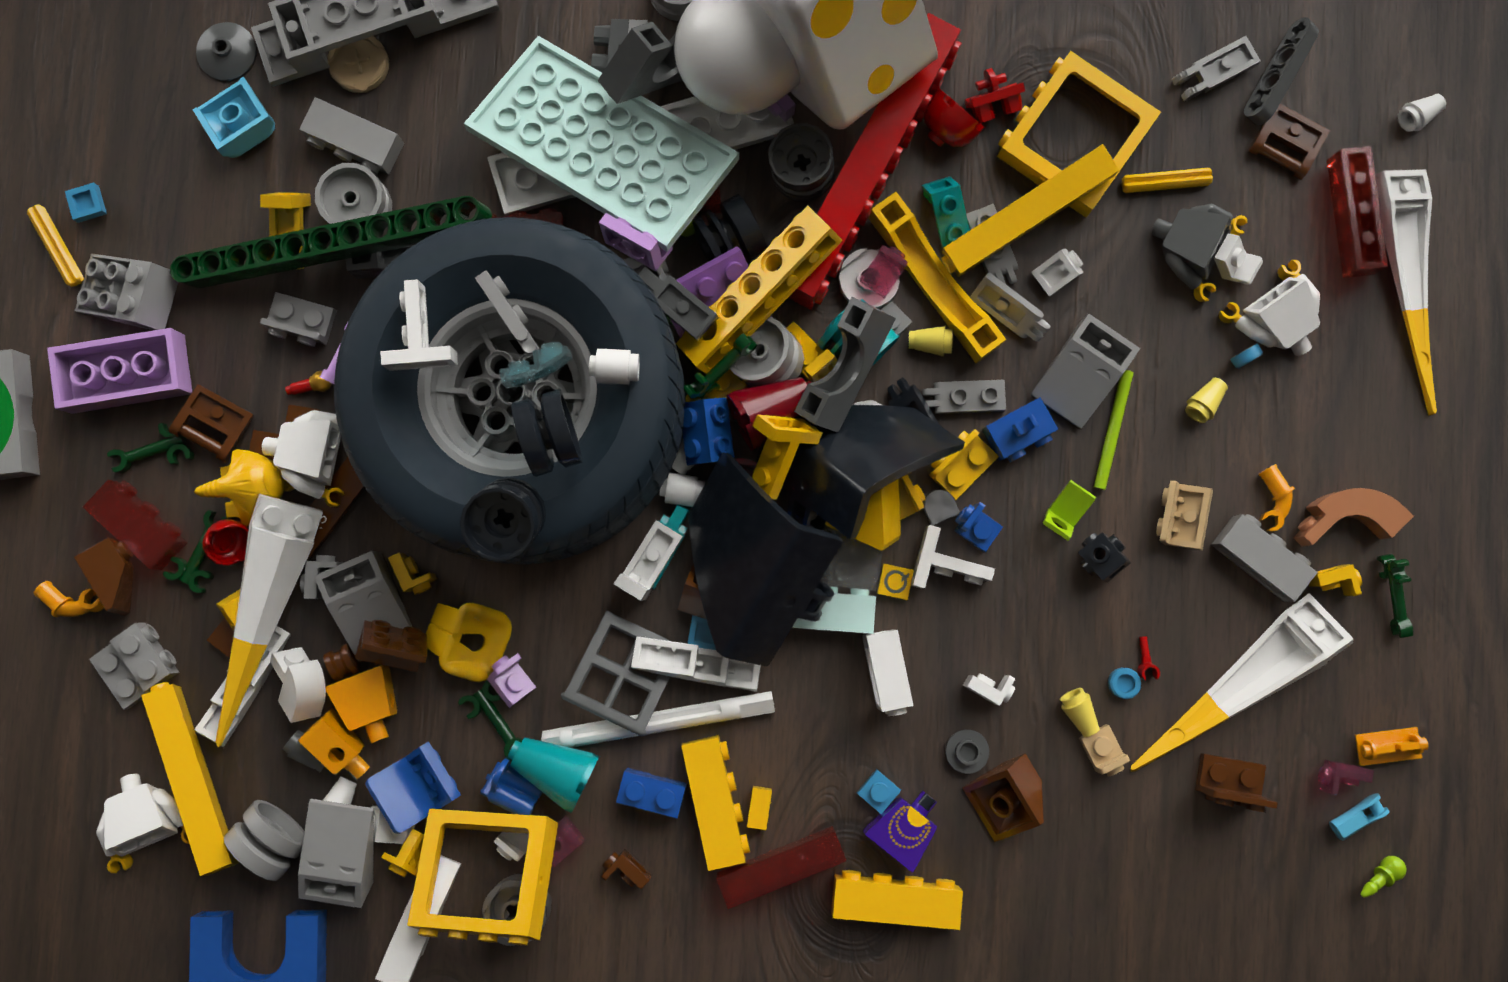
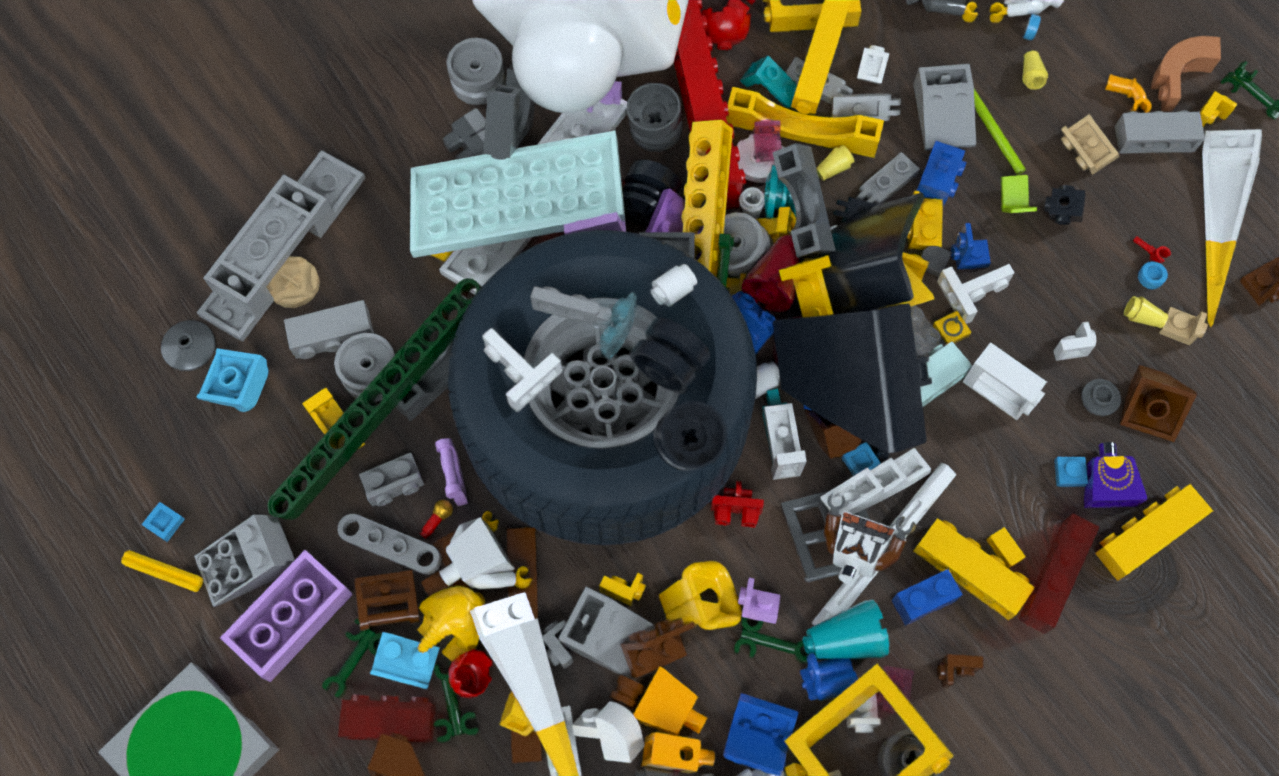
camera: 40 degrees left, 15 degrees down
(178, 482) = (402, 662): none -> medium azure plate
(252, 375) = (389, 543): none -> light grey plate
(572, 595) = (747, 506): none -> red hips
(628, 706) = (862, 544): none -> torso
(816, 312) = (752, 202): none -> white cone

